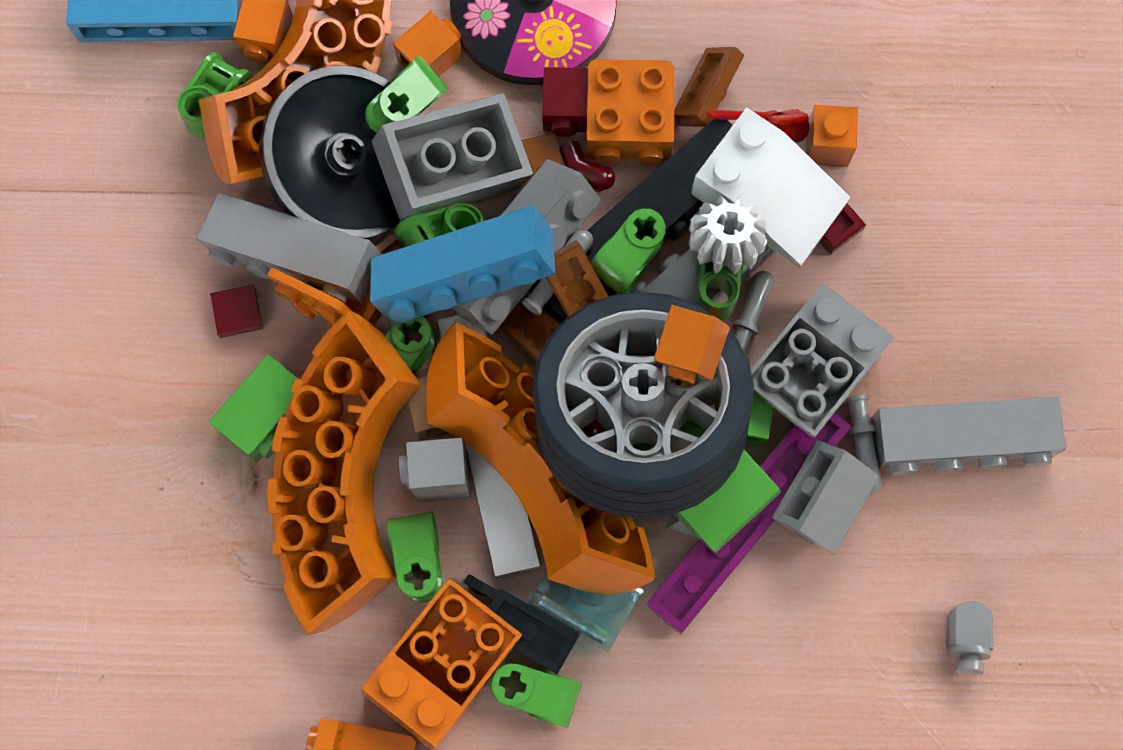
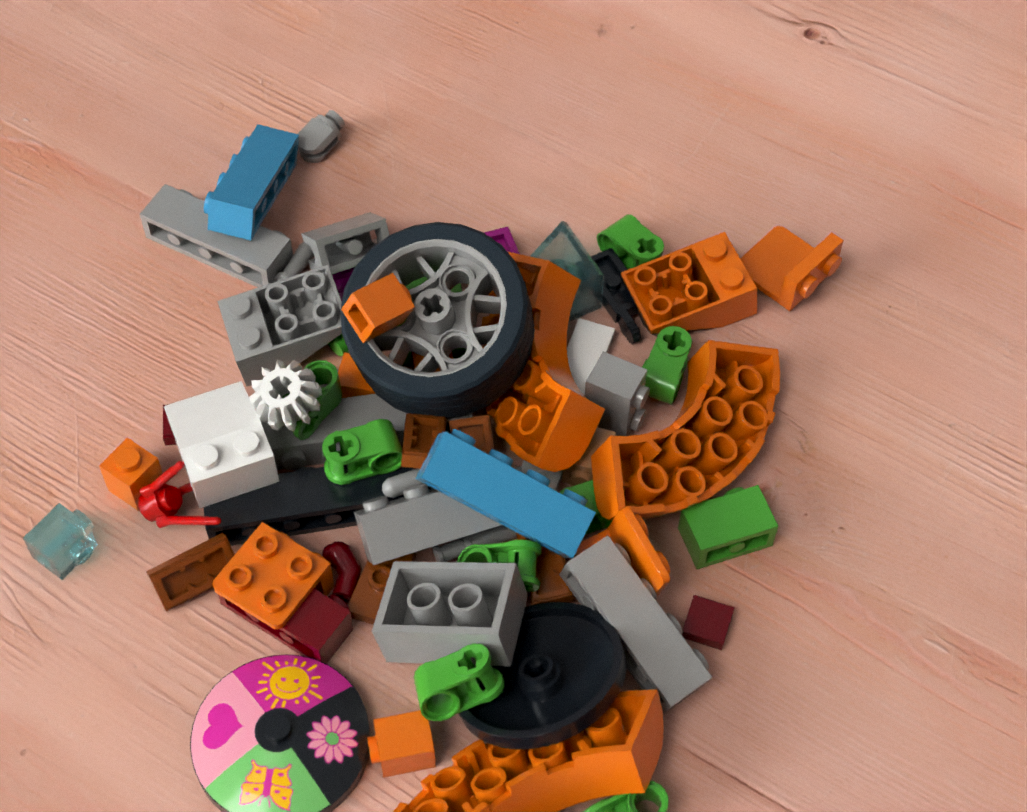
camera: 150 degrees left, 20 degrees down
(840, 45) = (61, 540): none -> clear light blue brick
(978, 506) = (252, 182): none -> dark azure brick

